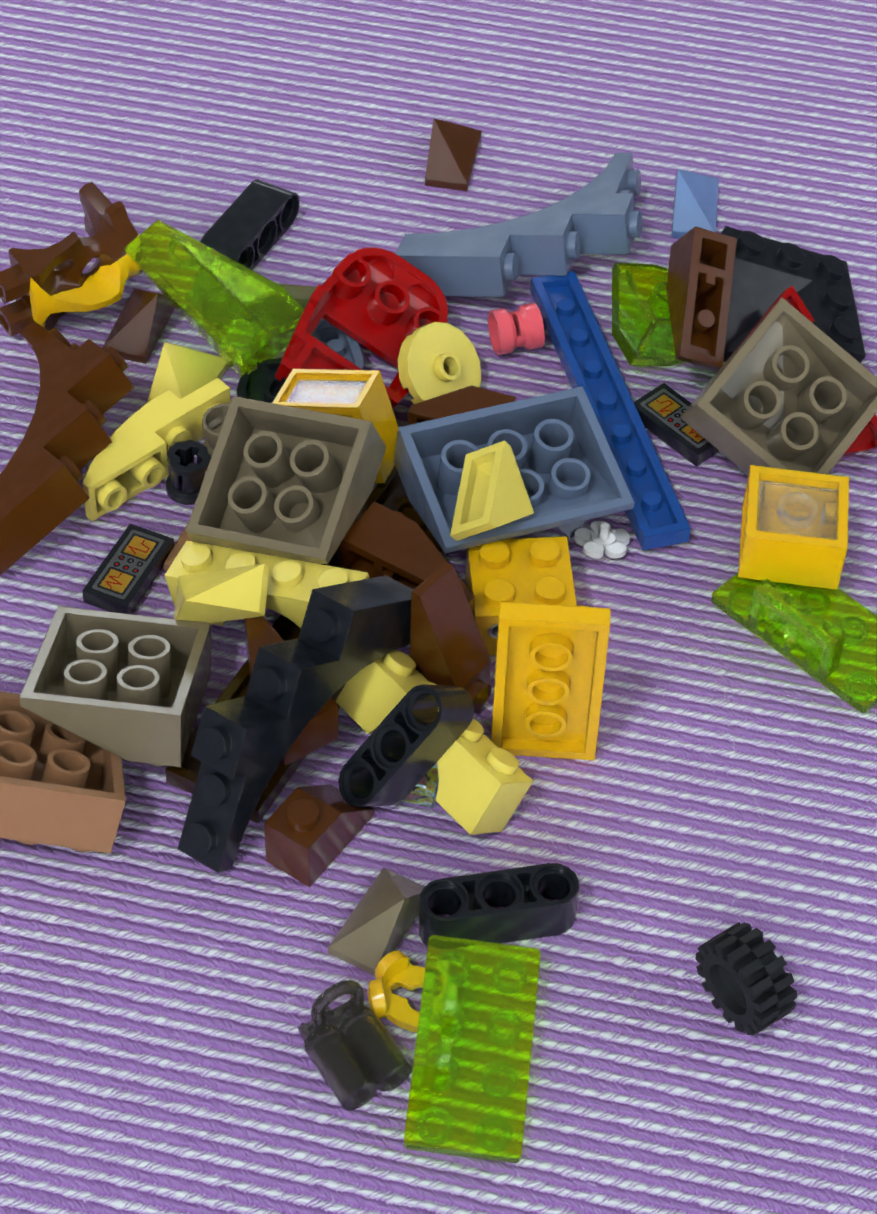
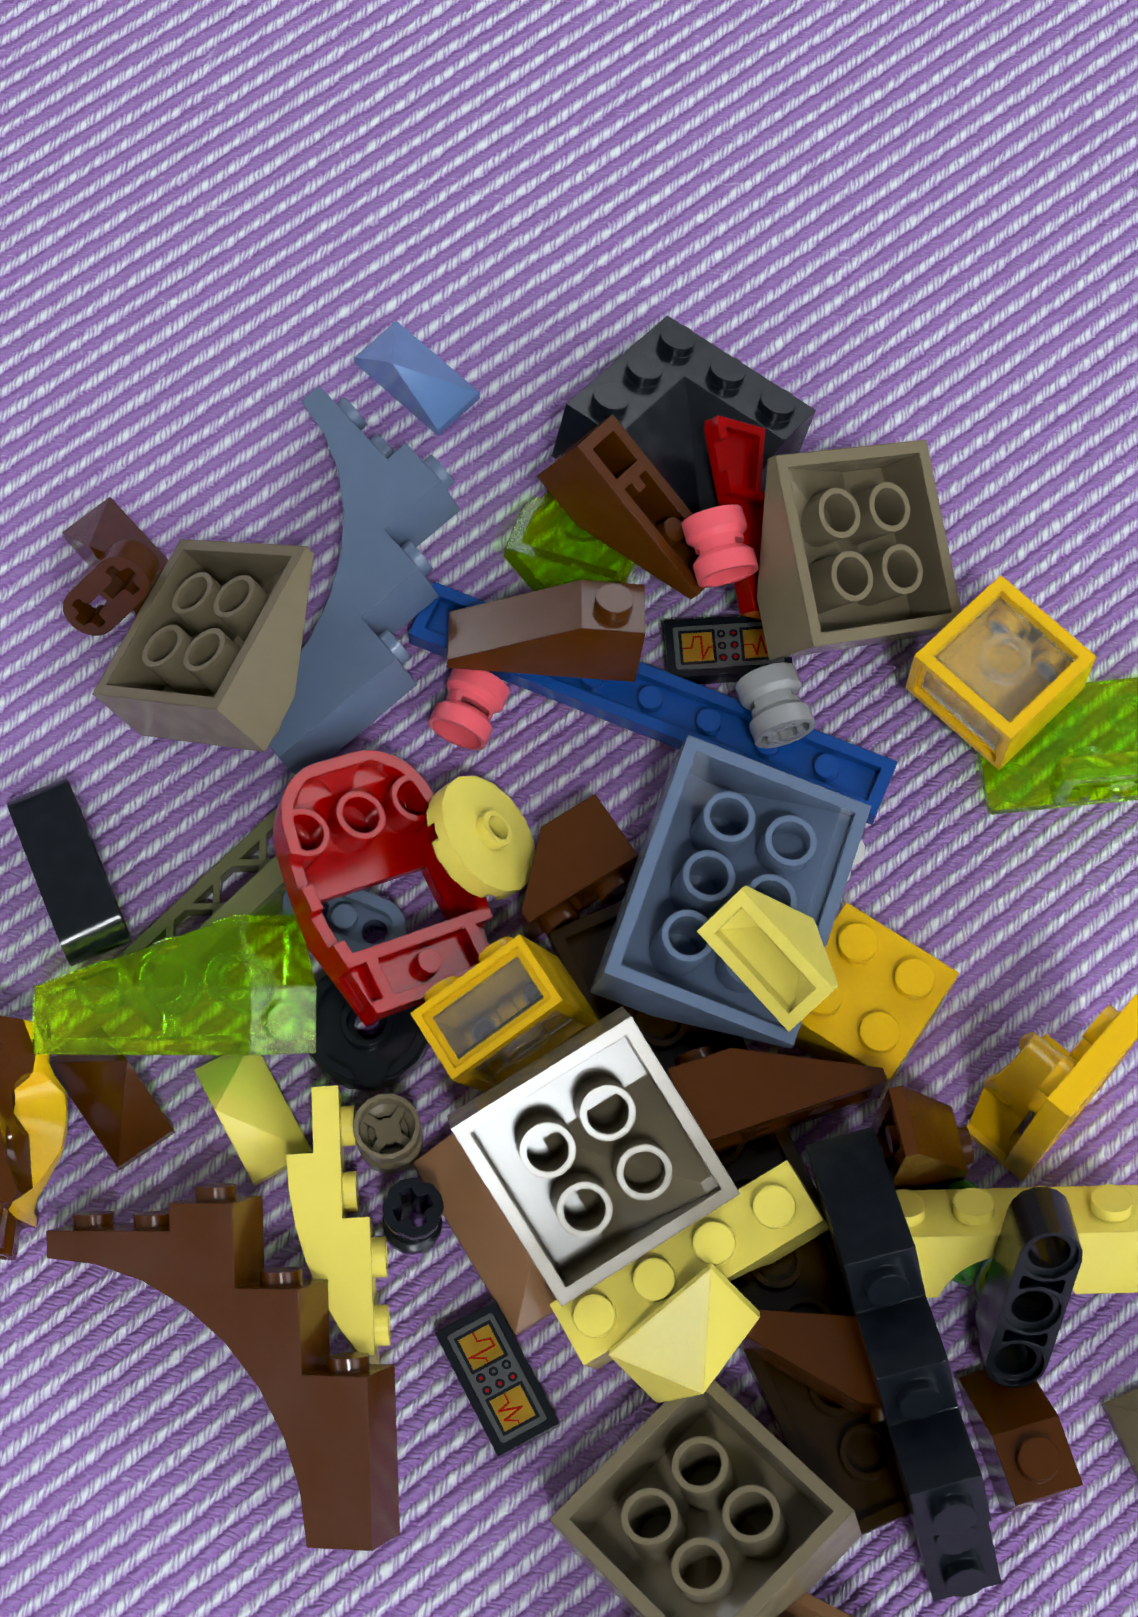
camera: 50 degrees left, 20 degrees up
(420, 193) = (214, 645): none -> dark tan slope
(423, 146) = (119, 595): none -> reddish brown beam
(600, 326) = (554, 631): none -> reddish brown slope
(650, 446) = (776, 708): none -> light grey wheel
(719, 334) = (719, 543): none -> coral wheel

